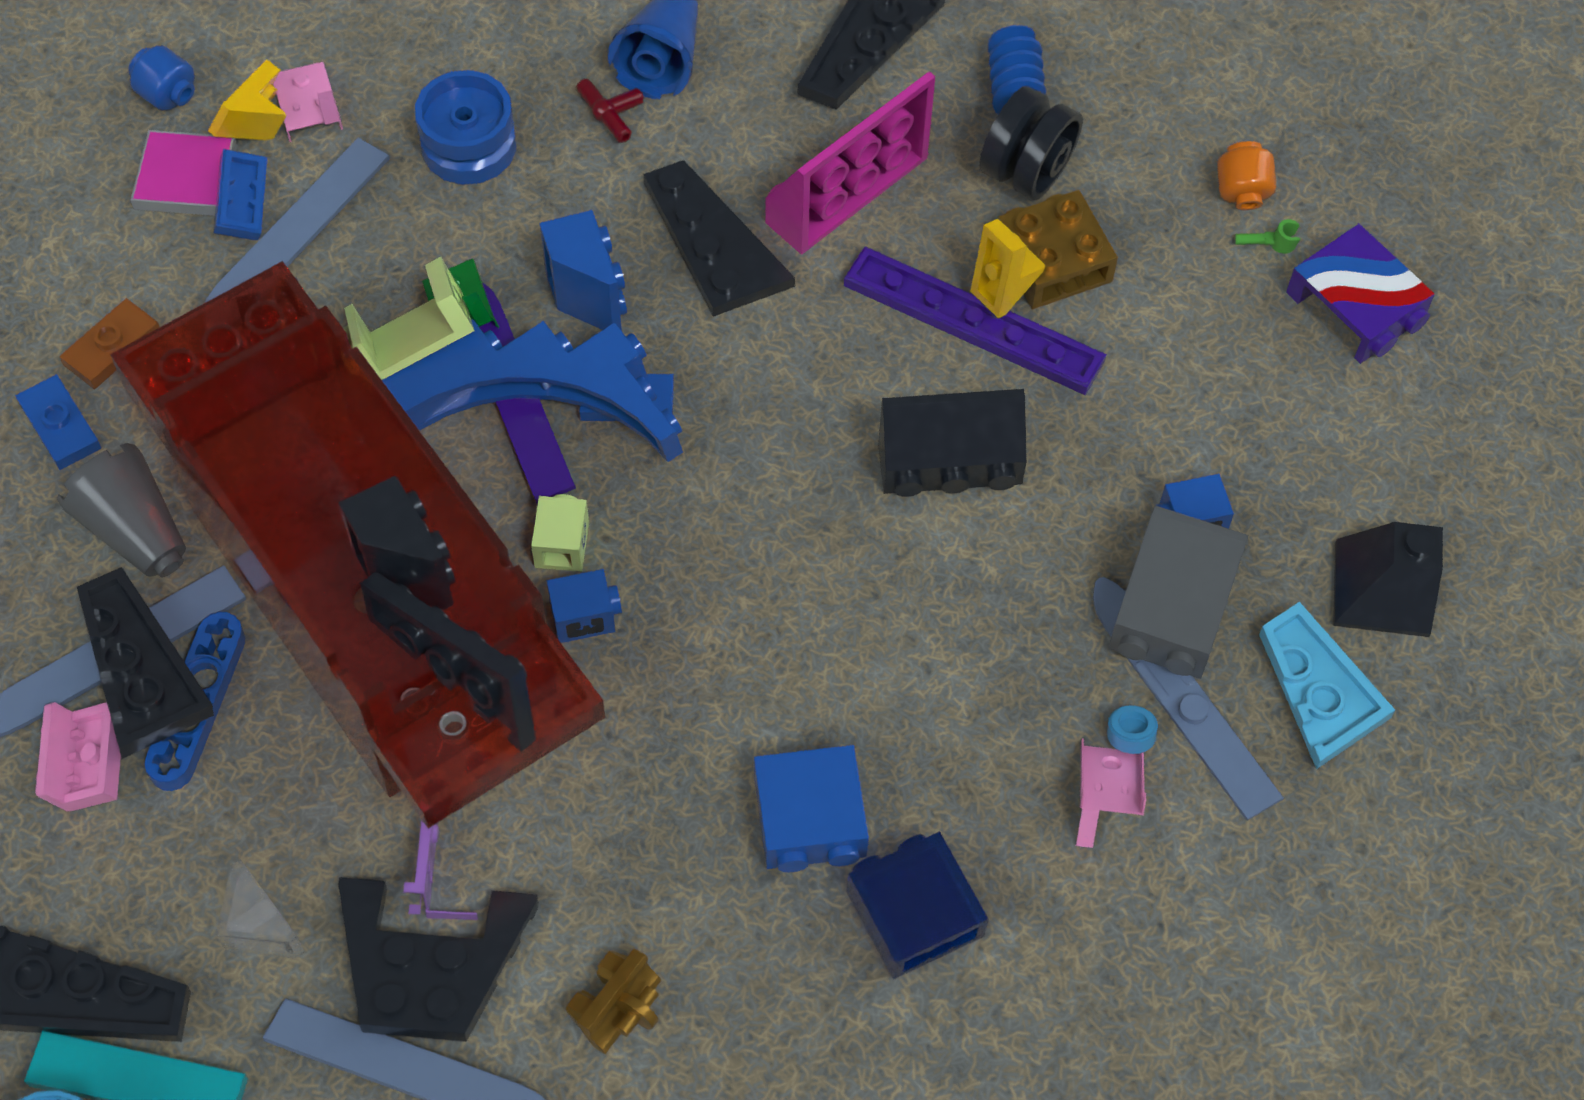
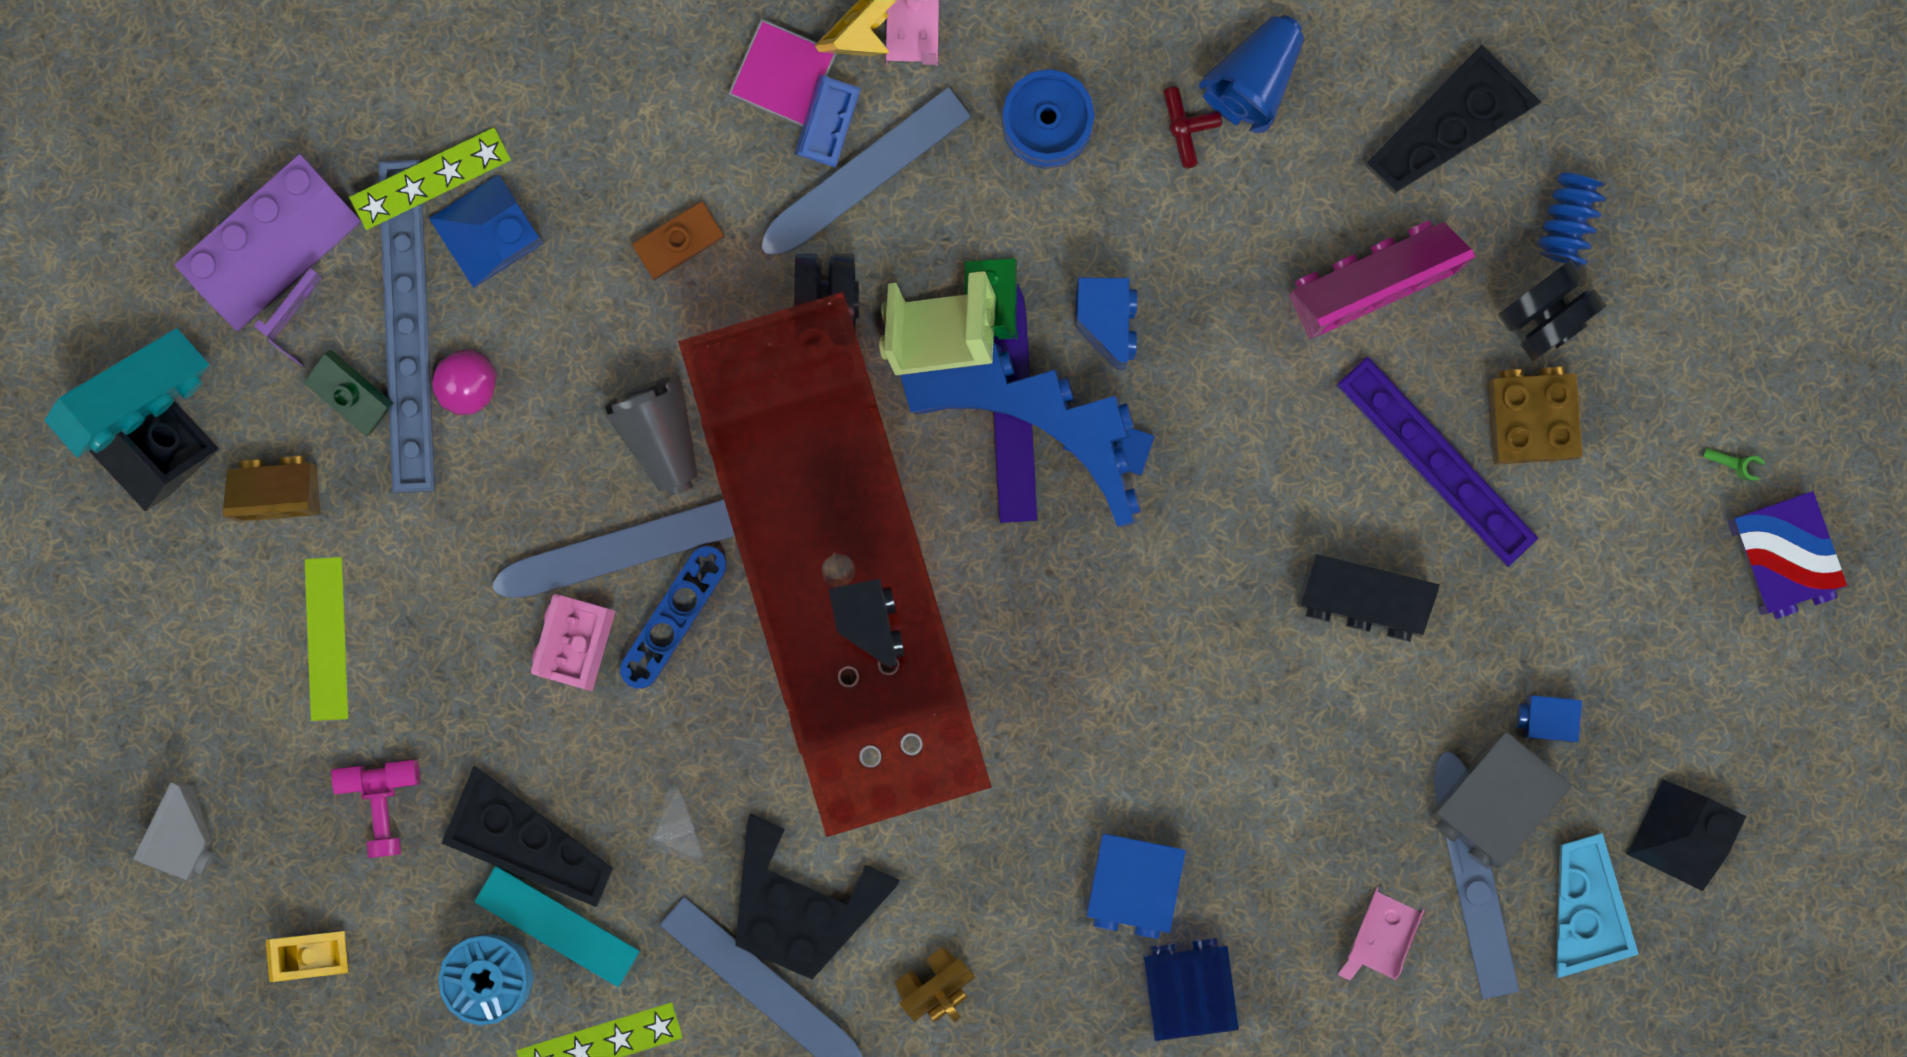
camera: 20 degrees right, 25 degrees up
(58, 422) = (616, 308): blue plate -> none
(139, 668) = (636, 592): black wing -> none
(424, 877) = (812, 849): medium lavender piece -> none
(454, 655) = (881, 725): black wing -> none
(560, 533) = (1012, 563): yellowish green brick -> none
(583, 605) = (1010, 639): blue brick -> none
(714, 243) = (1236, 310): black wing -> none
(1003, 268) = (1477, 441): yellow slope -> none
(1132, 729) = (1420, 895): dark azure tile -> none
(1246, 175) = (1739, 396): orange head -> none

